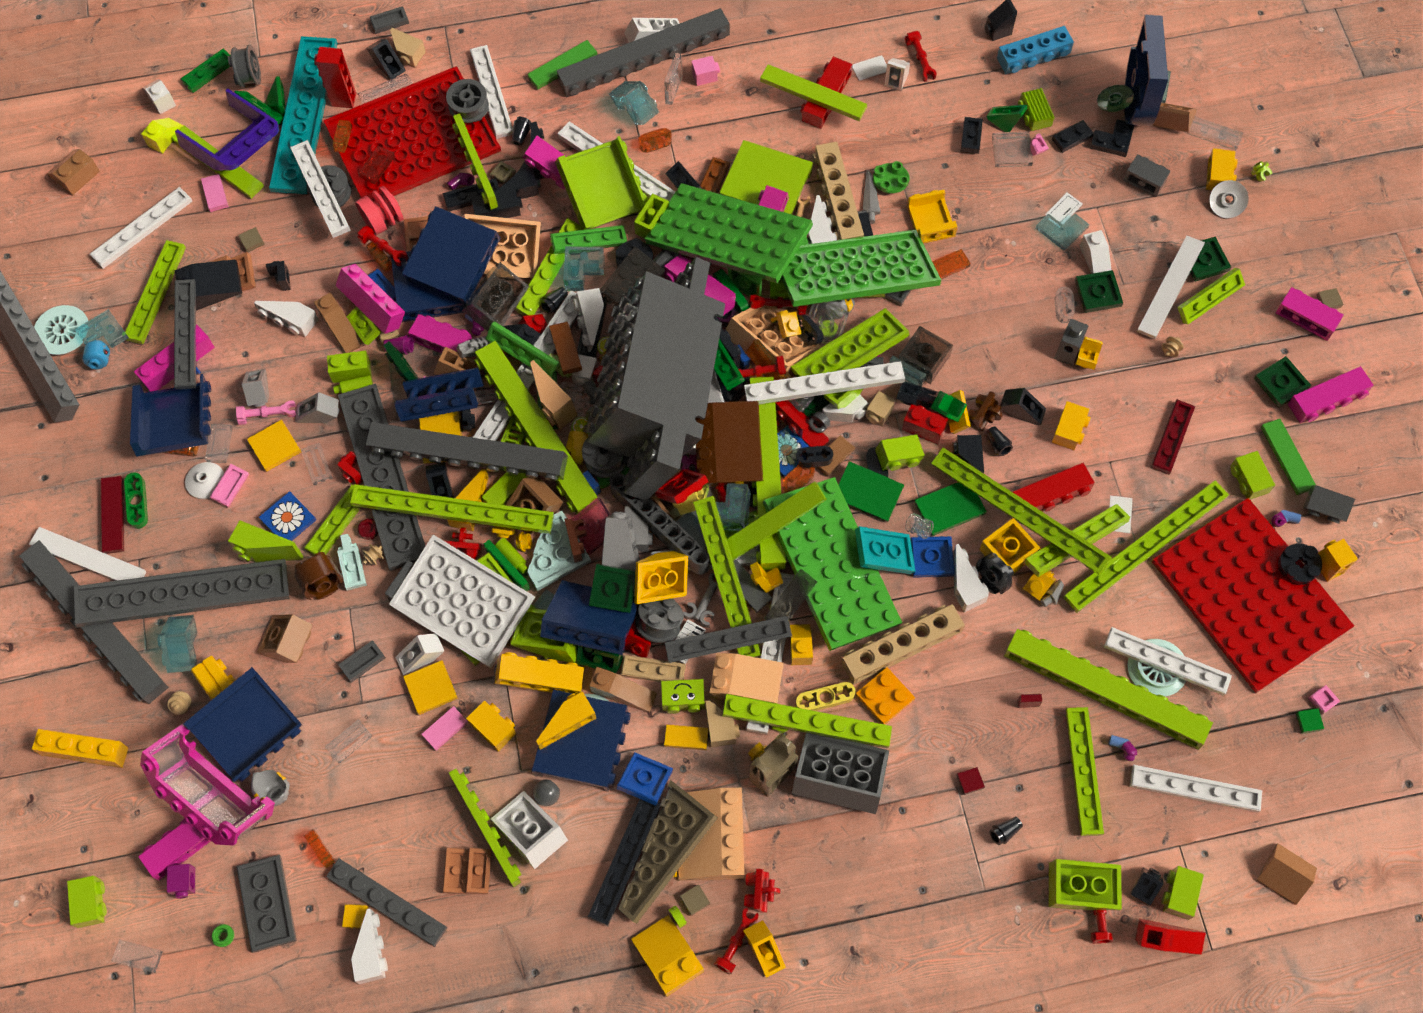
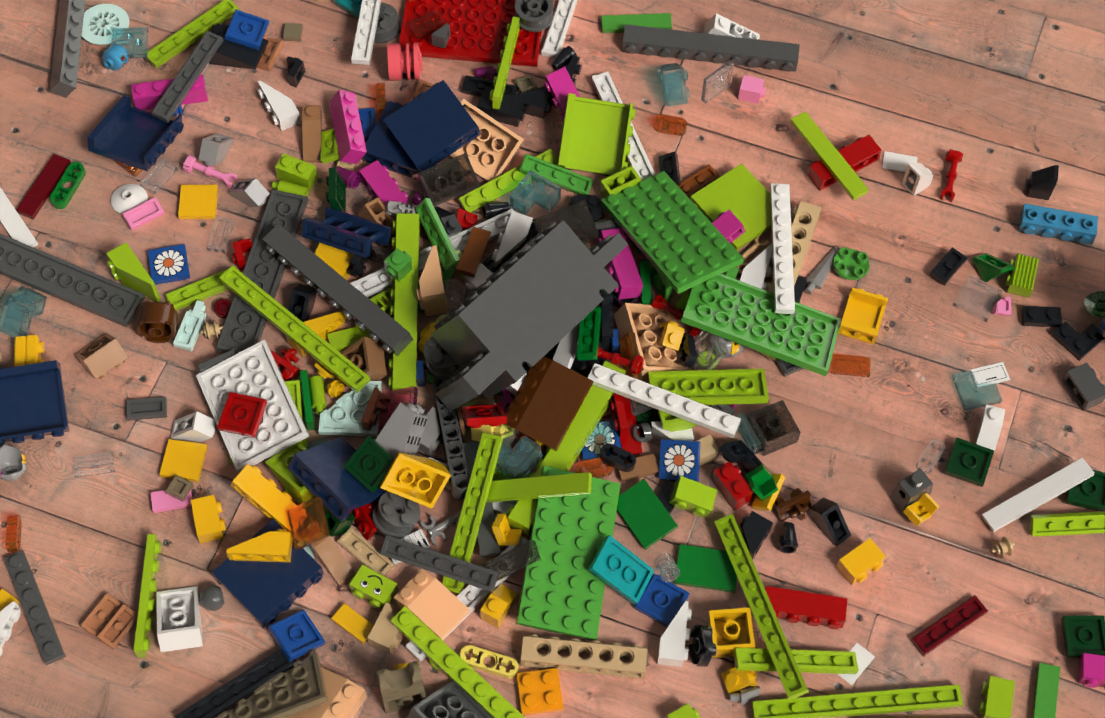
camera: 30 degrees right, 5 degrees down
(210, 259) = (247, 29): none -> blue tile
(367, 234) = (381, 74): red piece -> none
(397, 169) = (441, 36): none -> dark grey slope
(446, 714) = (179, 488): none -> dark tan tile
(461, 614) = (242, 414): none -> red plate
(510, 396) = (398, 264): none -> bright green brick
(591, 673) = (308, 523): none -> clear orange tile
(830, 195) = (782, 249): none -> white plate
(867, 427) = (679, 459): none -> tile

